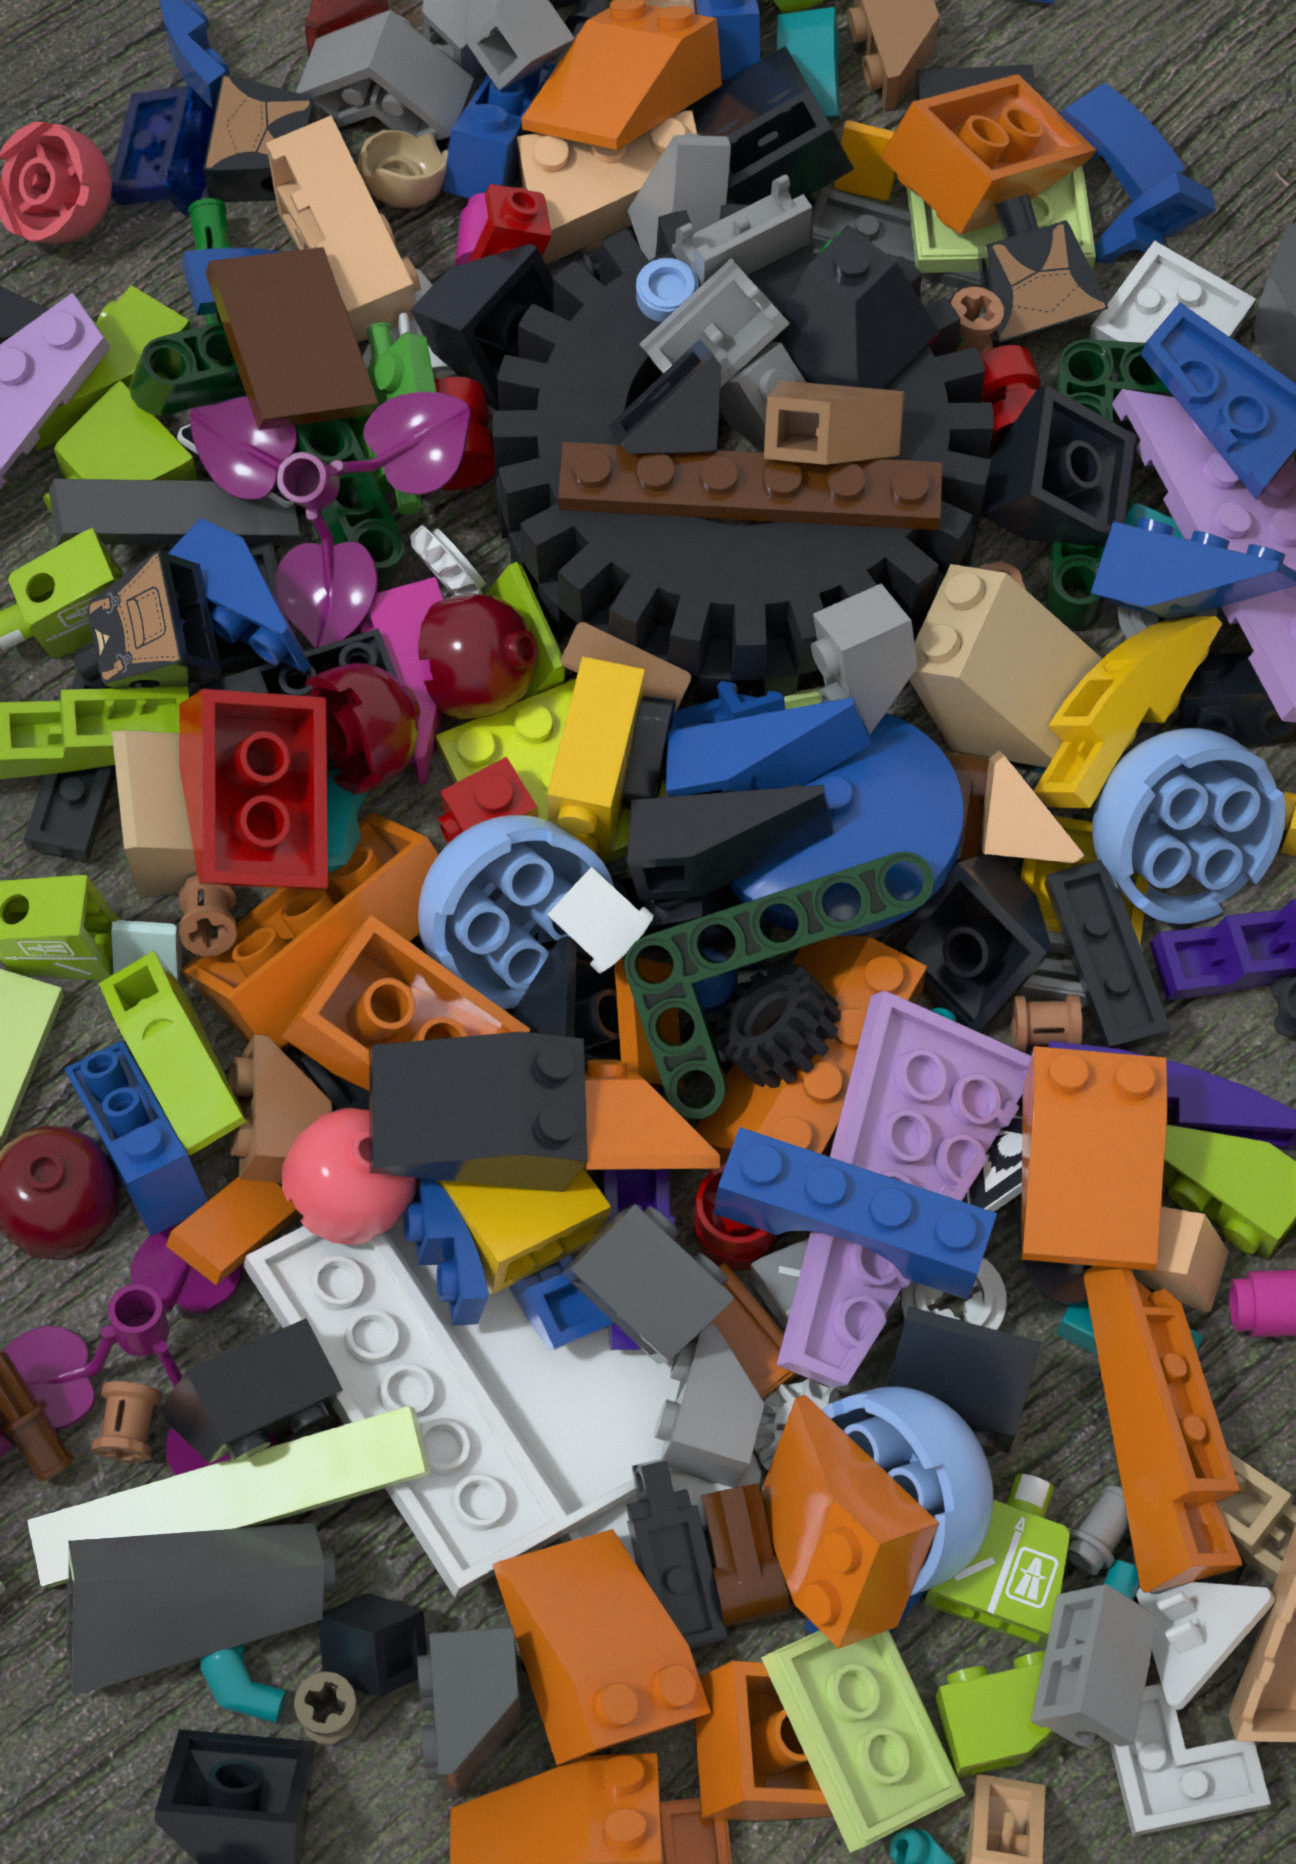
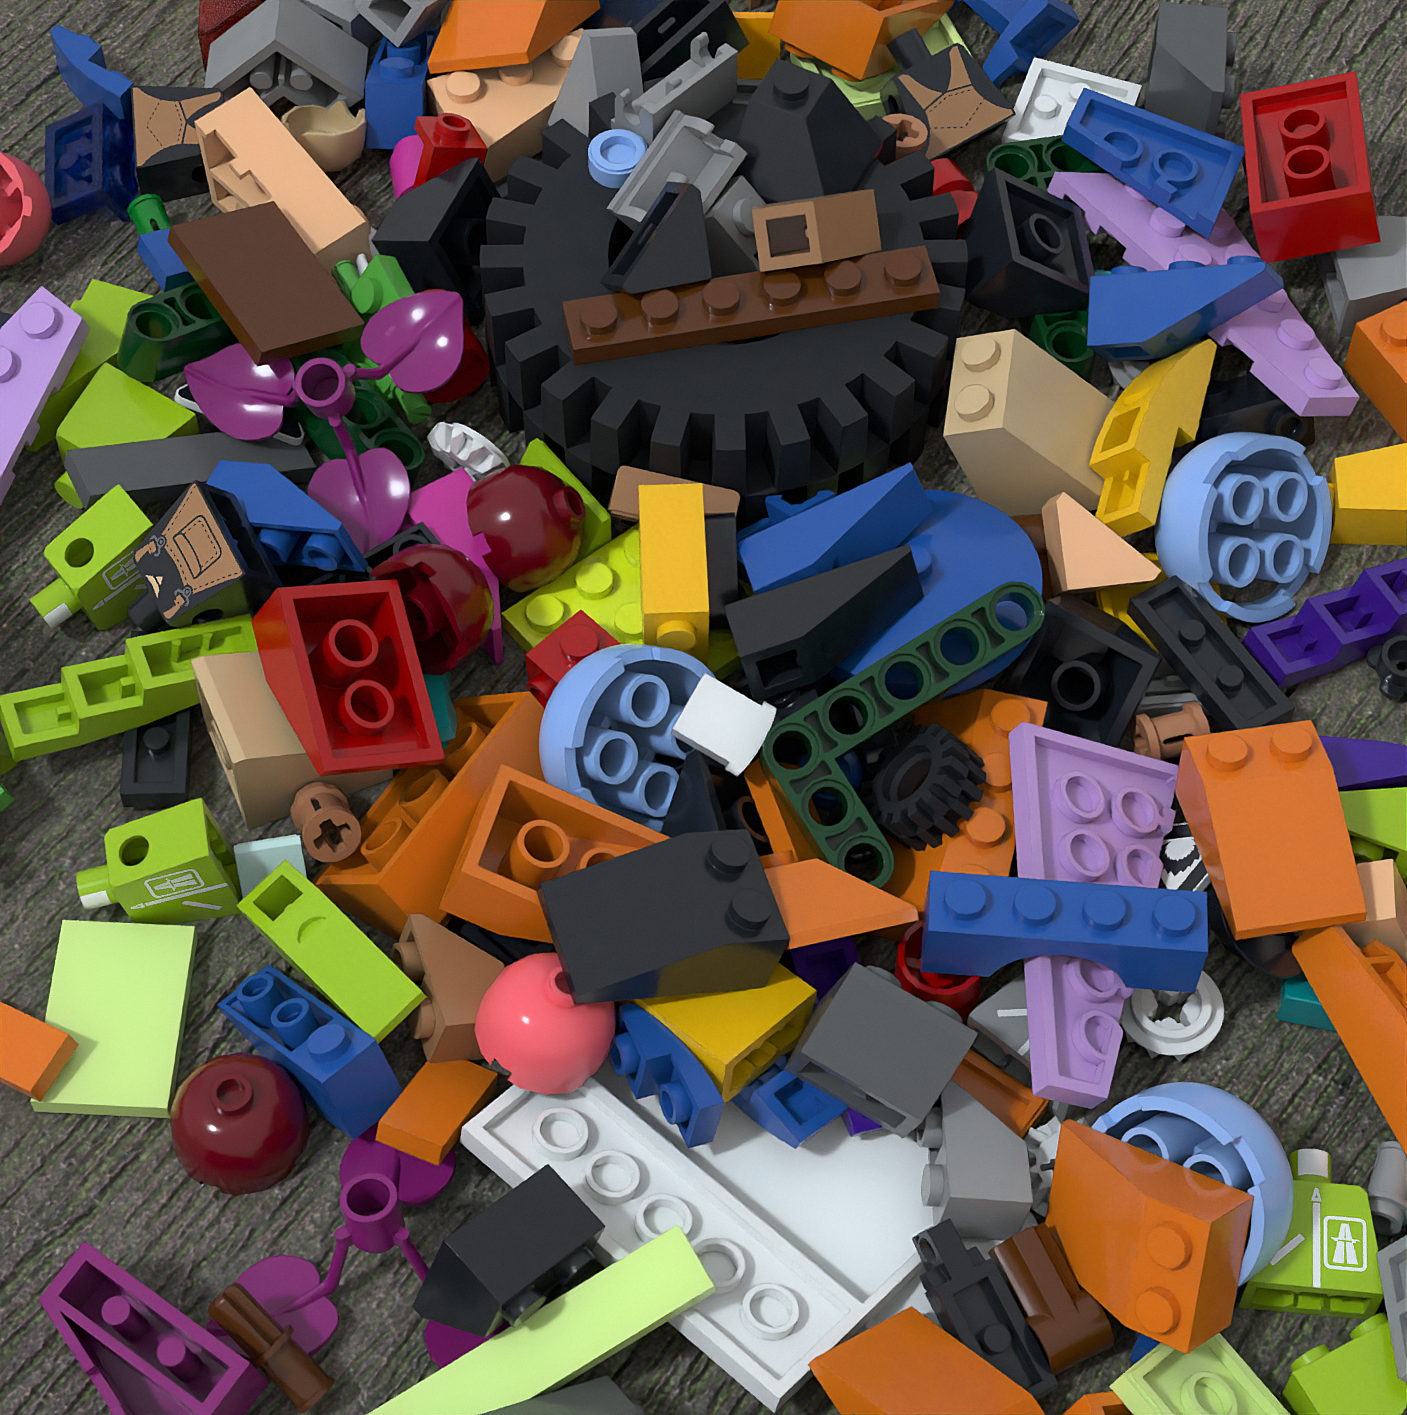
camera: 15 degrees left, 10 degrees down
(126, 1421) = (379, 1328): nougat bush -> none
(865, 651) = (904, 420): light grey slope -> none
(970, 1369) = (1215, 1047): black slope -> none

